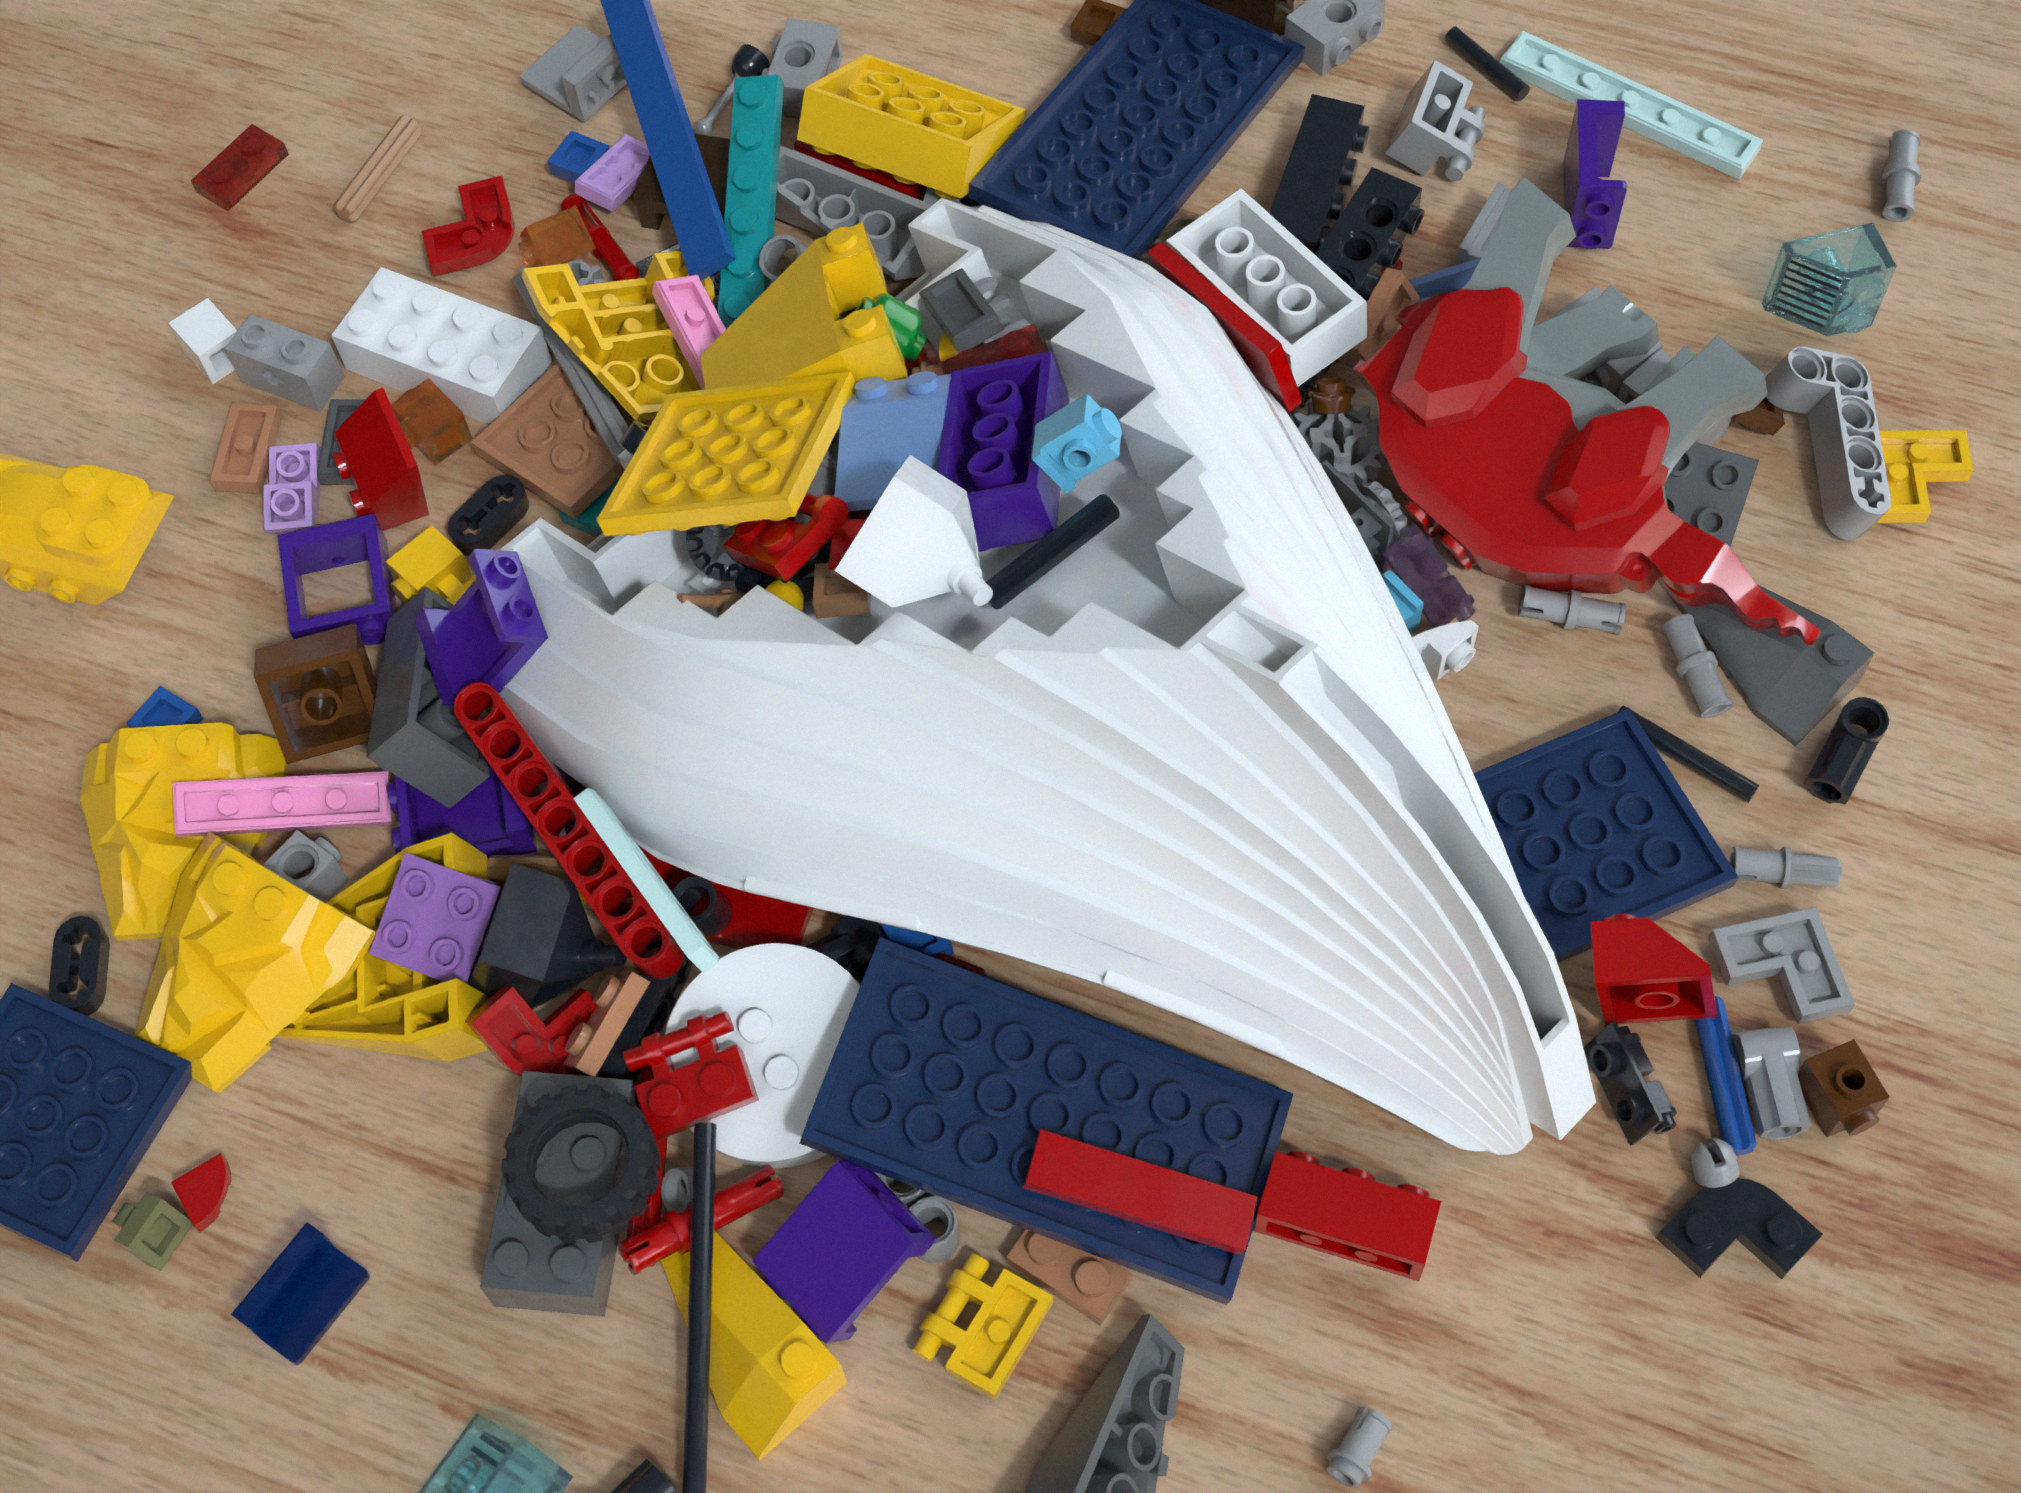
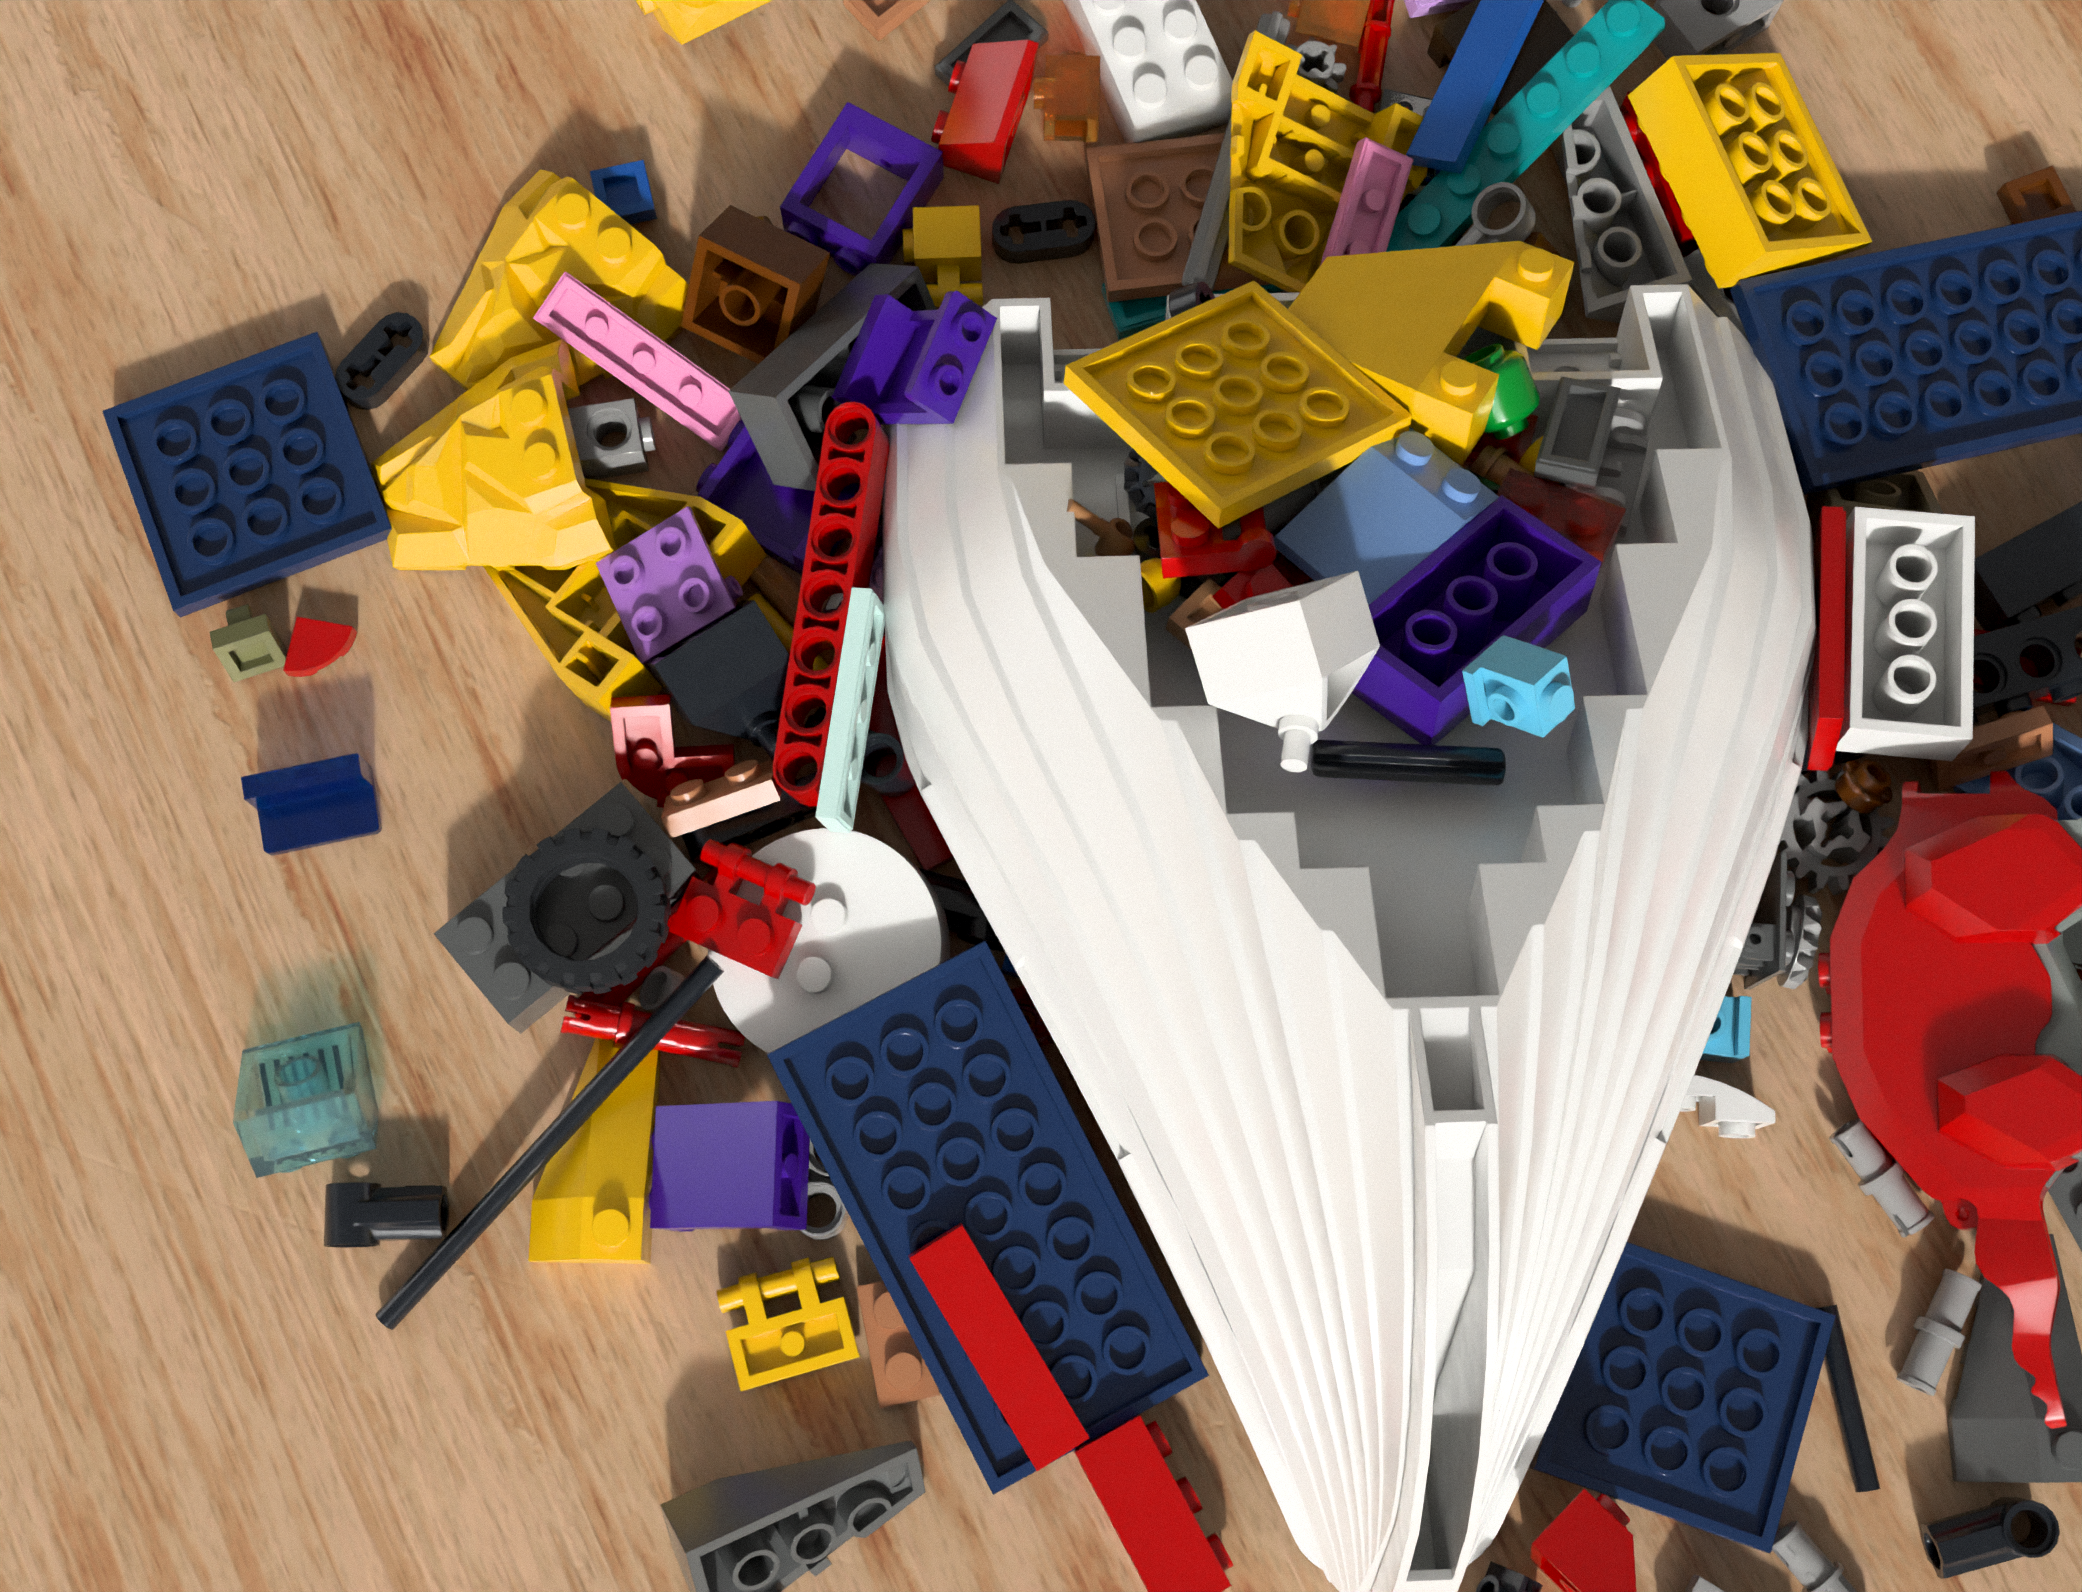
camera: 35 degrees right, 15 degrees up
(293, 488) = (906, 63): lavender slope -> none
(1426, 574) = (1779, 1035): clear purple hinge -> none

